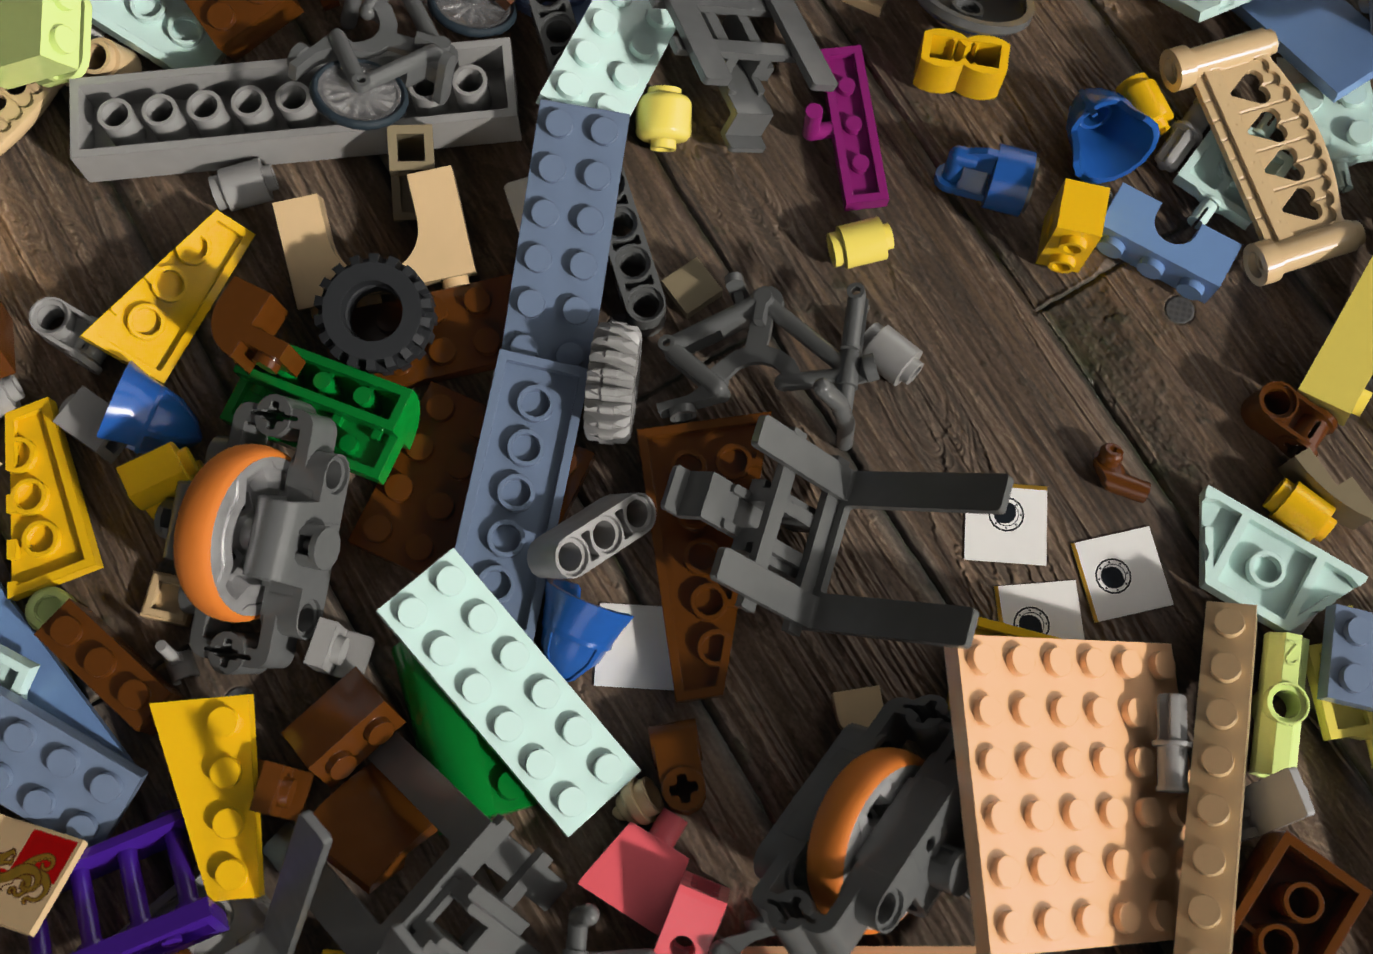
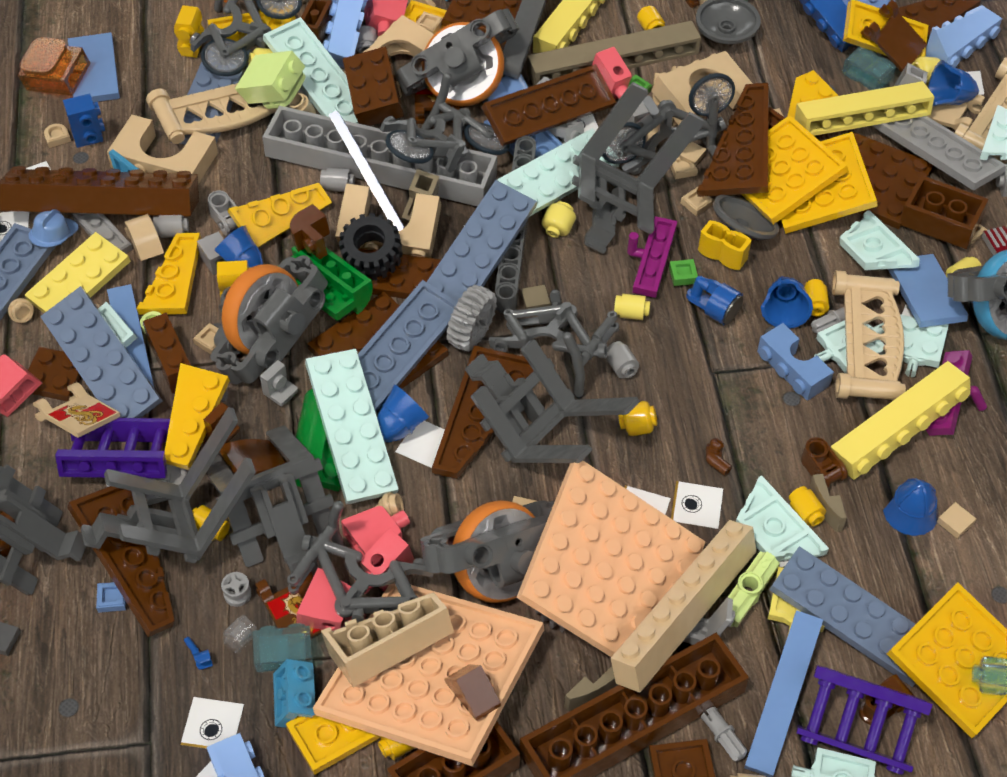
camera: 25 degrees right, 20 degrees down
(178, 664) = (200, 362): light grey hand -> none
(298, 162) = (366, 169): none -> tile
(343, 728) = (264, 416): reddish brown brick -> none
(591, 536) = (436, 373): light grey beam -> none
(678, 758) = (419, 497): reddish brown piece -> none
(912, 140) = (683, 272): none -> bright green plate
(968, 452) = (639, 420): none -> yellow head
(1016, 535) = (646, 459): white sticker -> none
(1072, 226) = (745, 332): yellow brick -> none
(1172, 743) = (674, 569): light grey axle -> none

